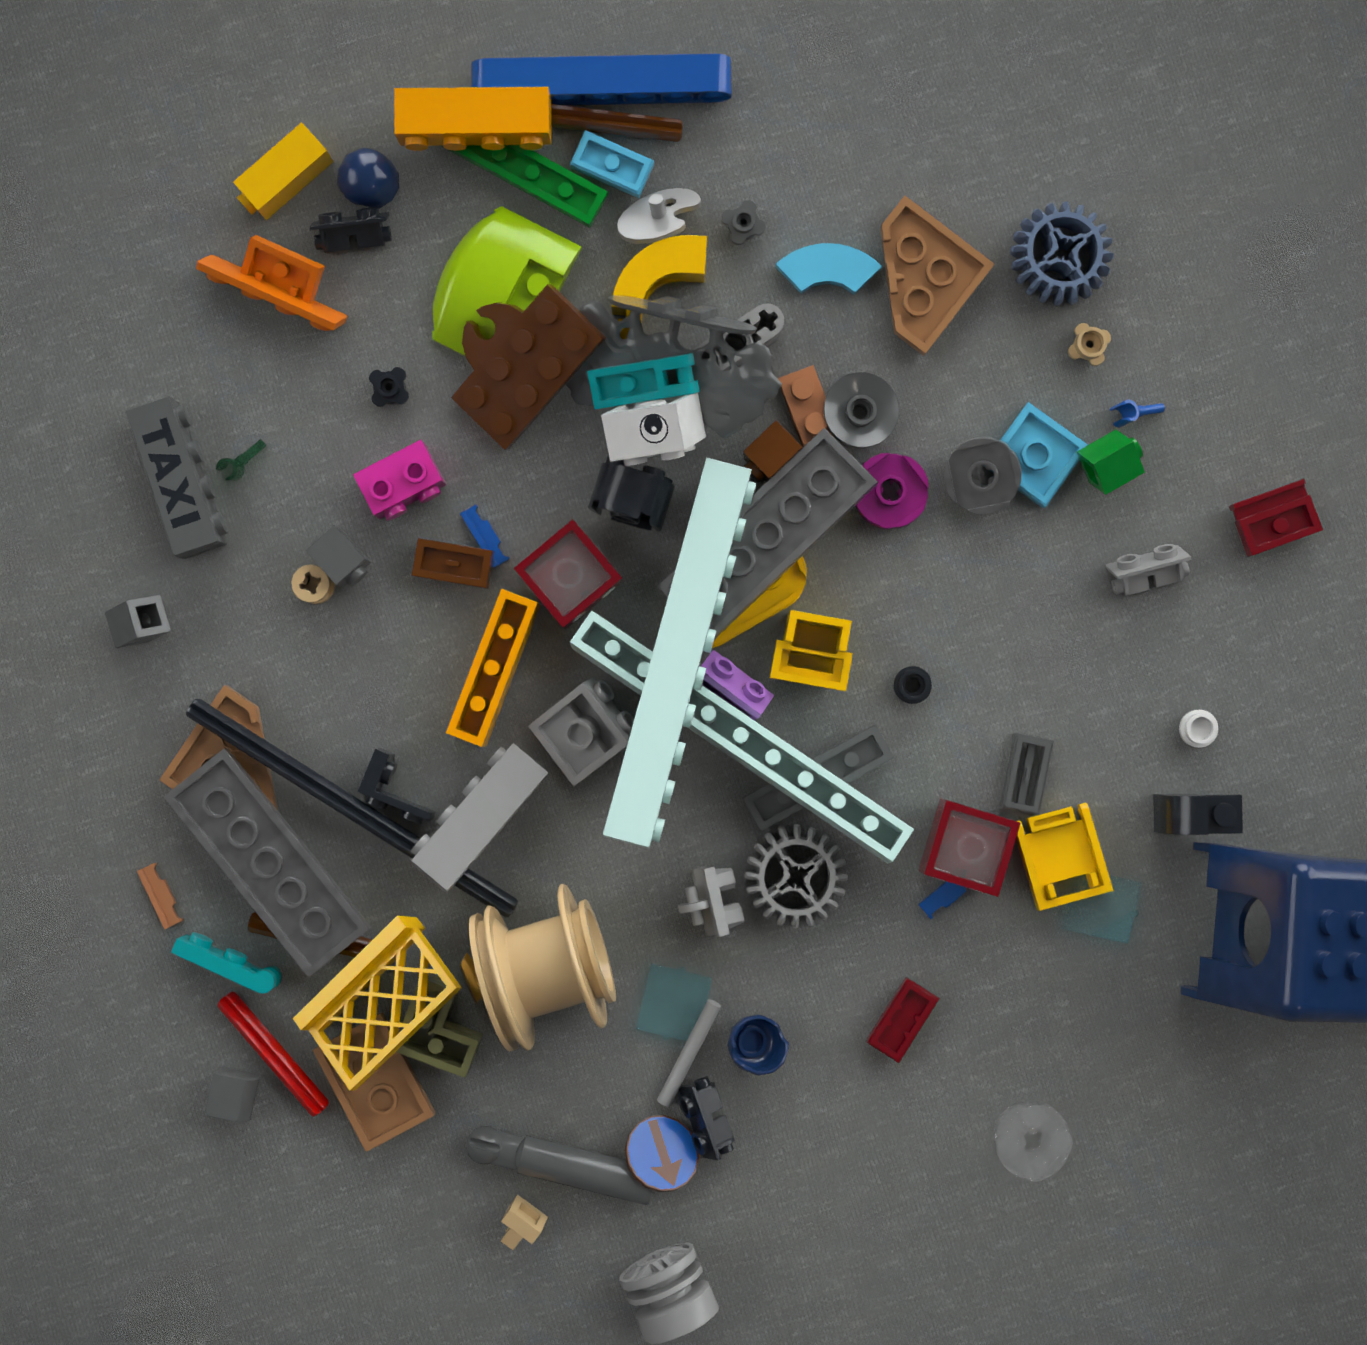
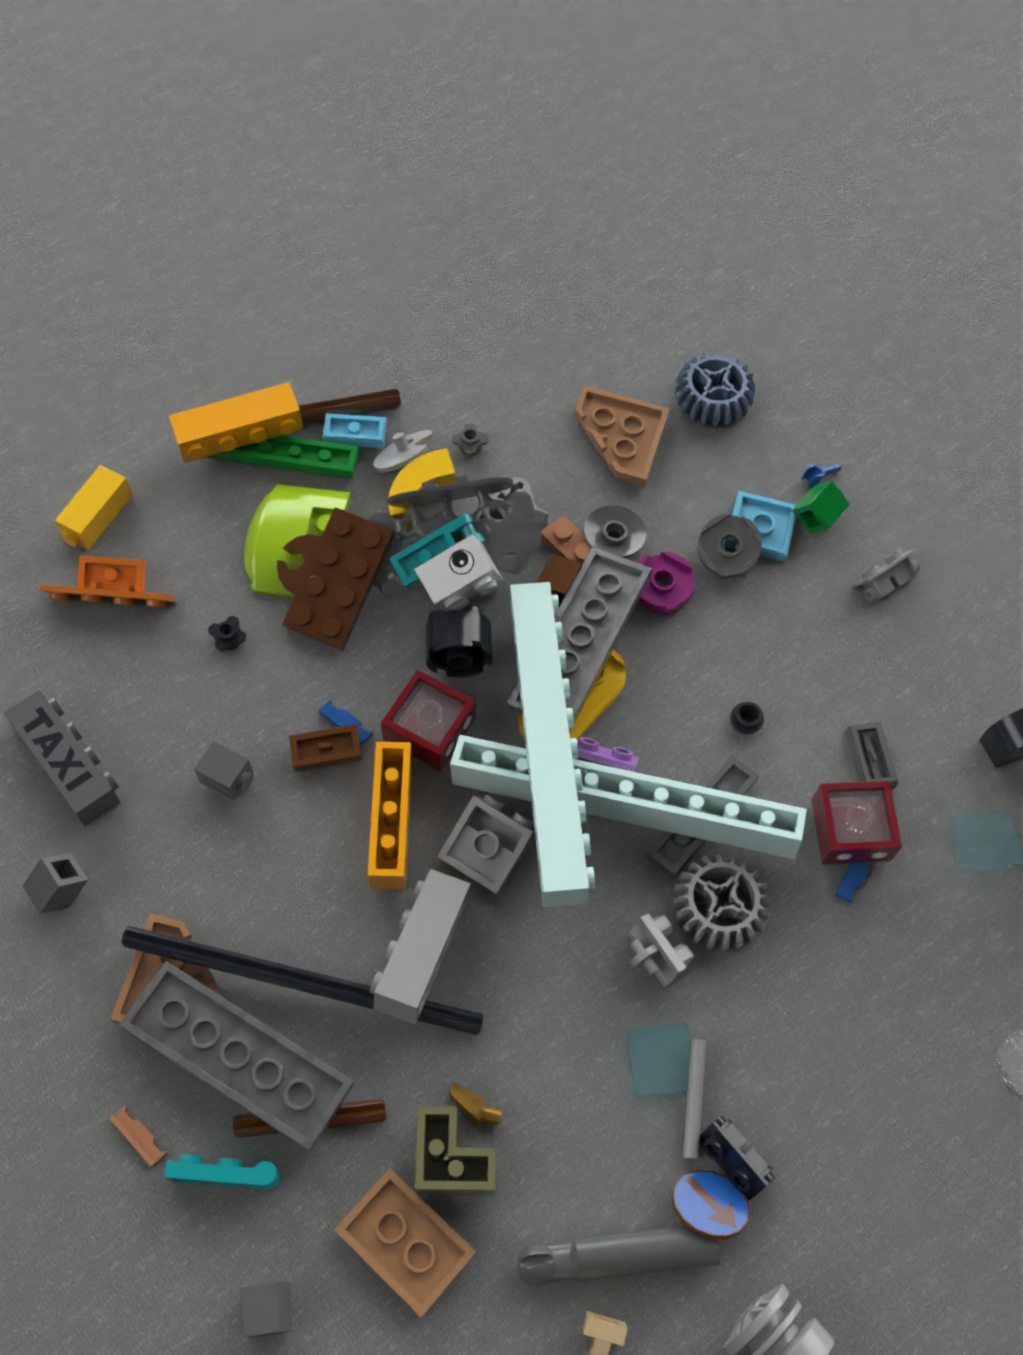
camera: 20 degrees left, 25 degrees down
(241, 460) = (114, 730): clear green hand -> none
(273, 1053) = (295, 1253): red axle -> none
(319, 584) = (211, 811): tan wheel -> none
(336, 230) = (149, 534): black hinge -> none
(352, 982) = (354, 1140): yellow fence -> none
(368, 178) = (164, 494): dark blue hair -> none
(381, 772) = (318, 940): black bracket -> none
(400, 481) = (259, 697): dark pink brick -> none
(540, 968) = (533, 1047): tan wheel -> none
(613, 78) = (346, 373): blue beam -> none
(757, 1045) = (754, 1064): dark blue hair -> none
(813, 651) = (656, 709): yellow plate -> none
(828, 265) = (546, 449): medium azure tile -> none
(902, 1019) = (870, 996): dark red plate -> none
(1062, 850) = (931, 805): yellow container -> none
(1098, 337) = (764, 434): tan plate -> none
(1198, 728) = (988, 674): white plate -> none
(1275, 518) = (961, 510): dark red plate -> none

